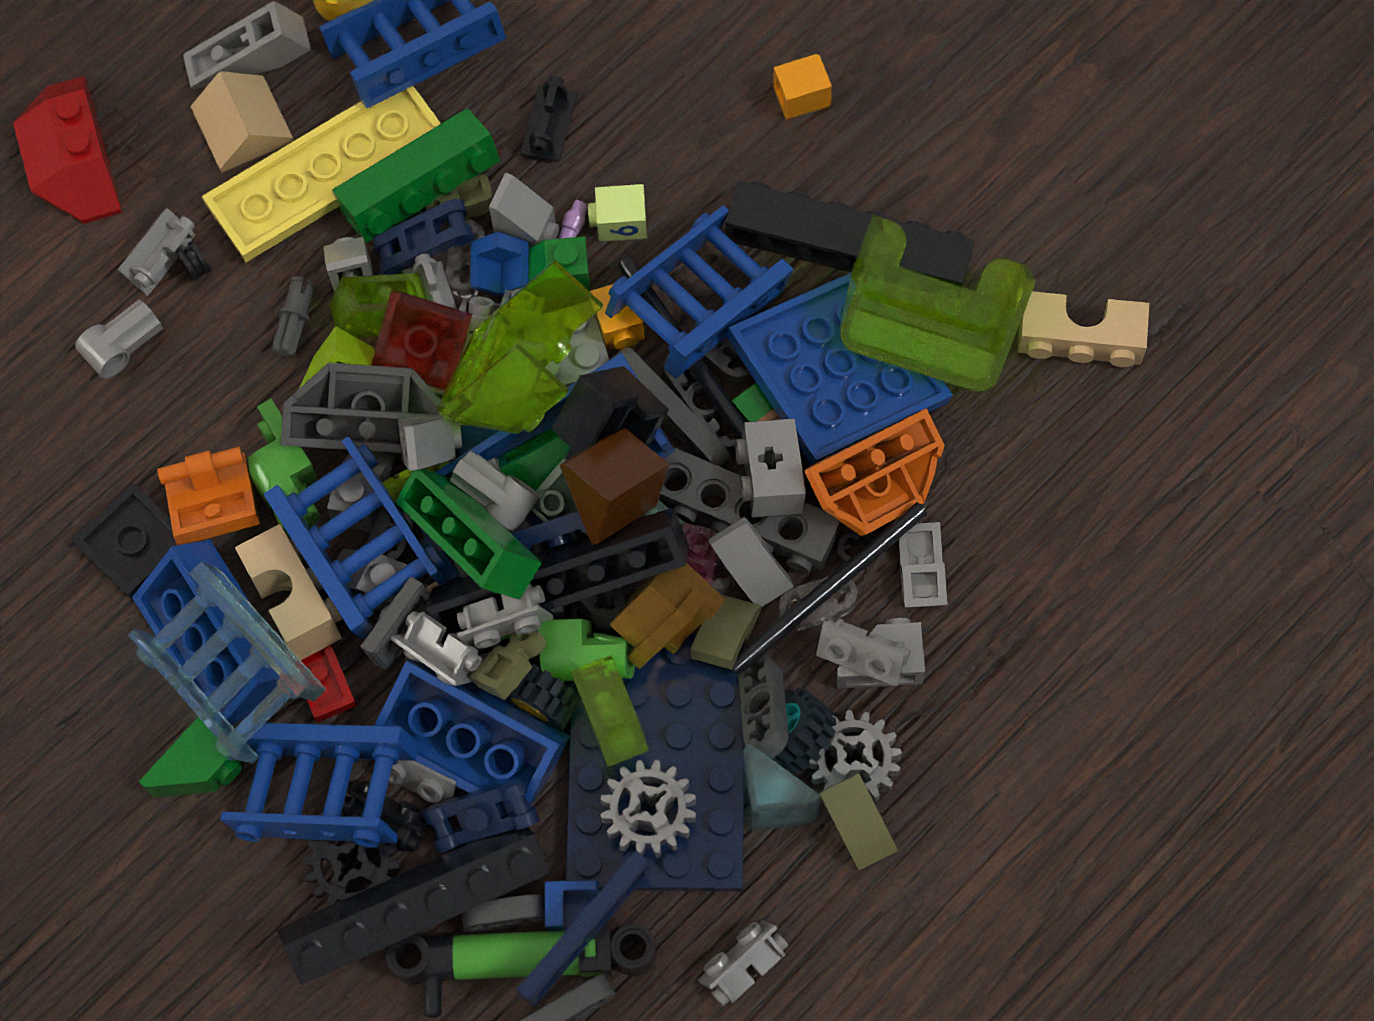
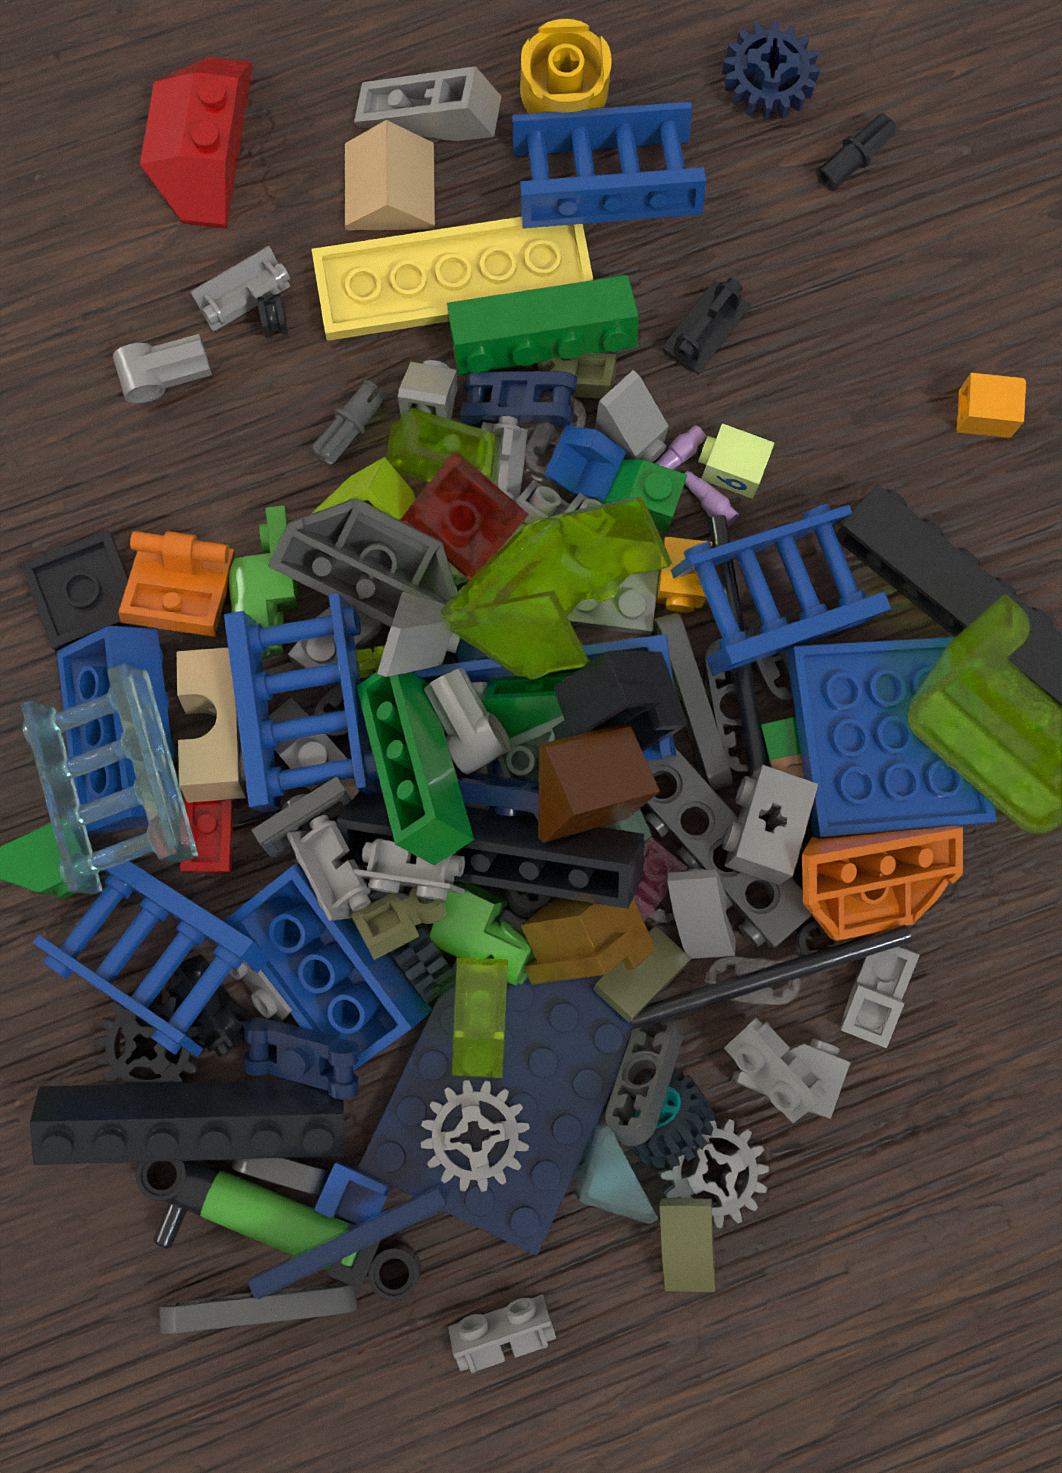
camera: 15 degrees right, 10 degrees up
(612, 251) = (711, 499): none -> lavender piece

